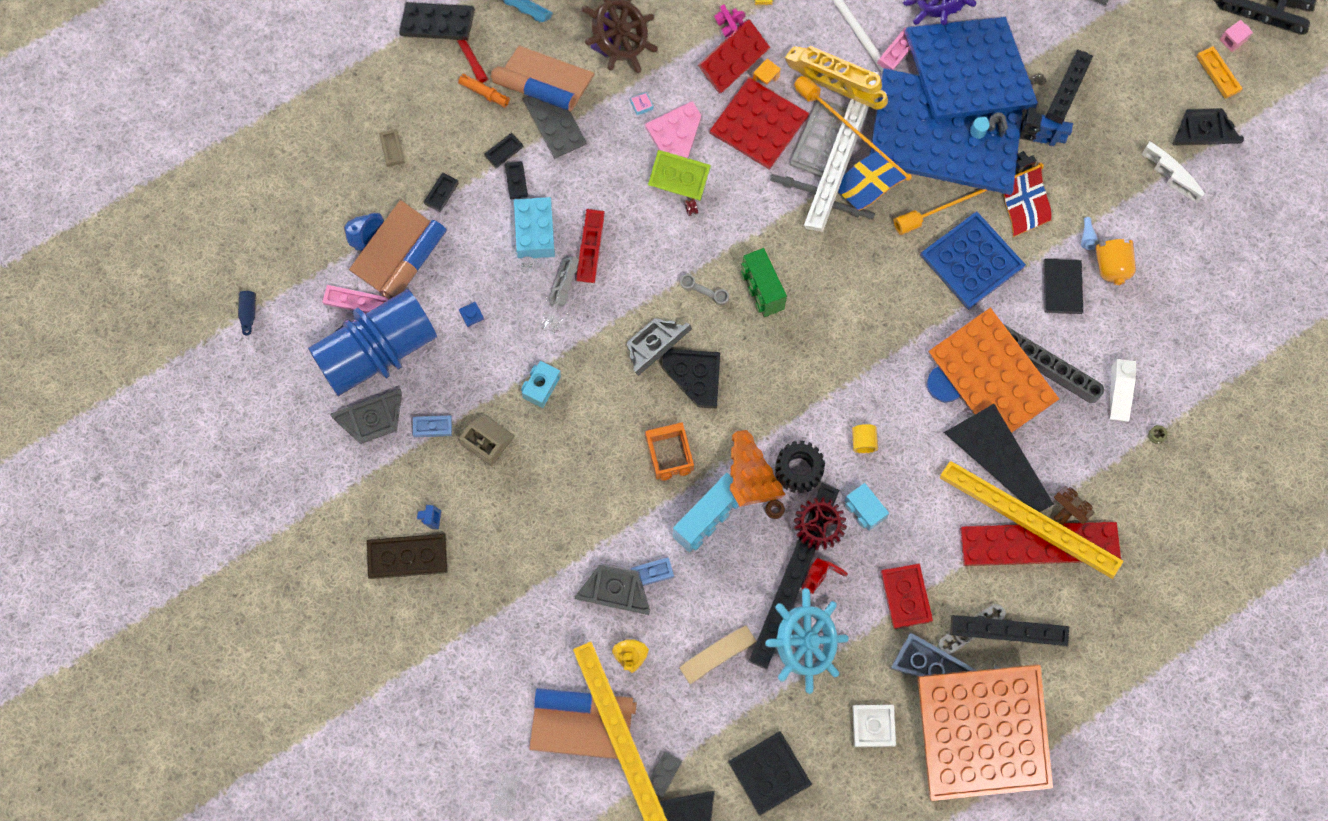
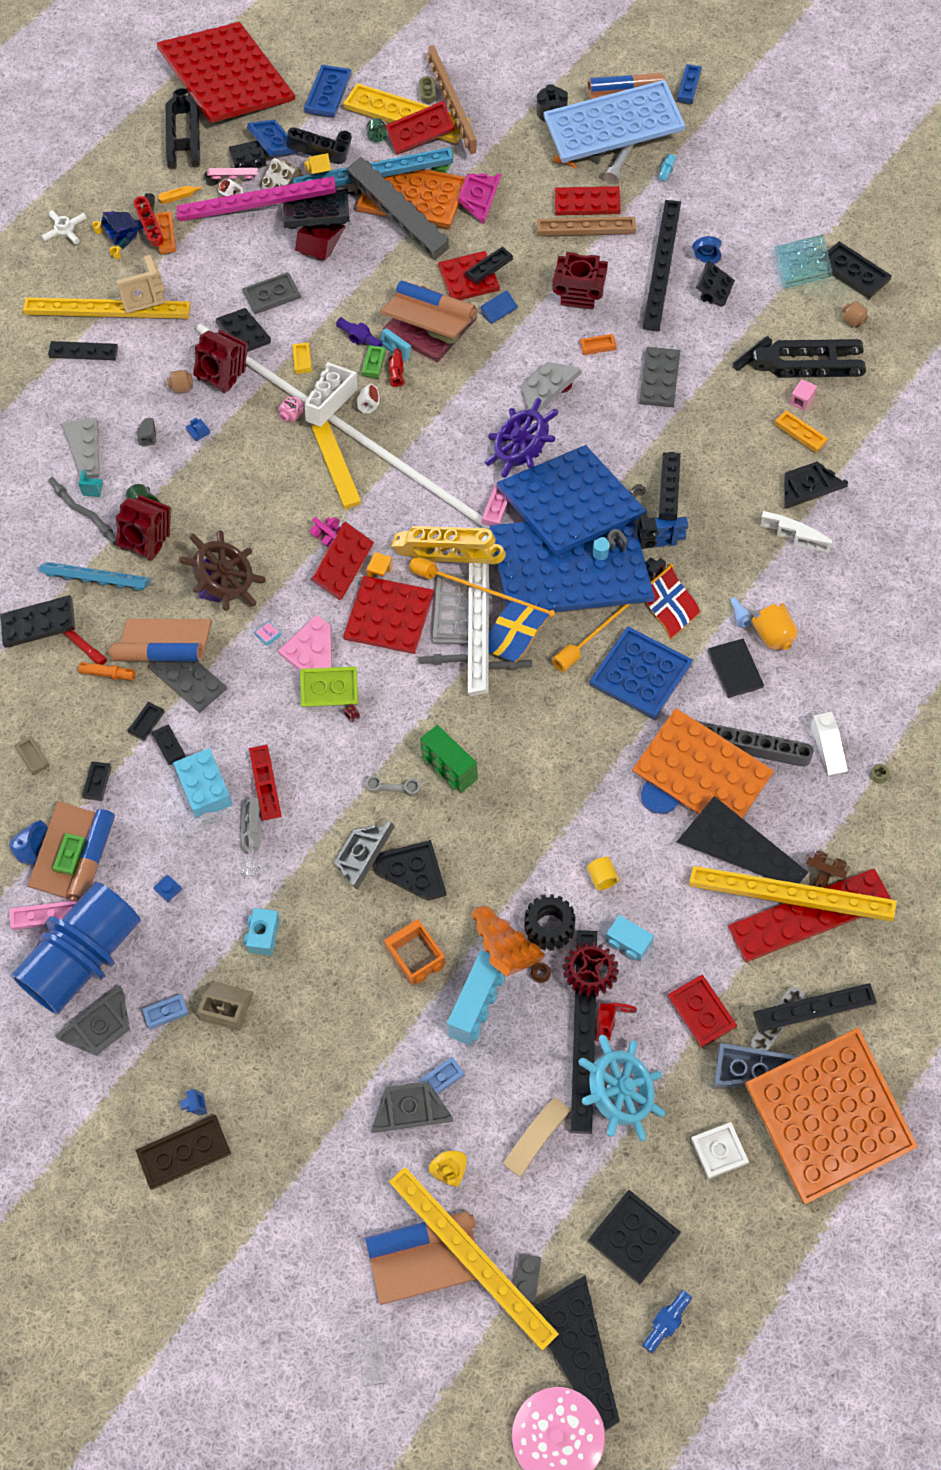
camera: 15 degrees left, 10 degrees down
(394, 253) = (69, 854): none -> bright green plate

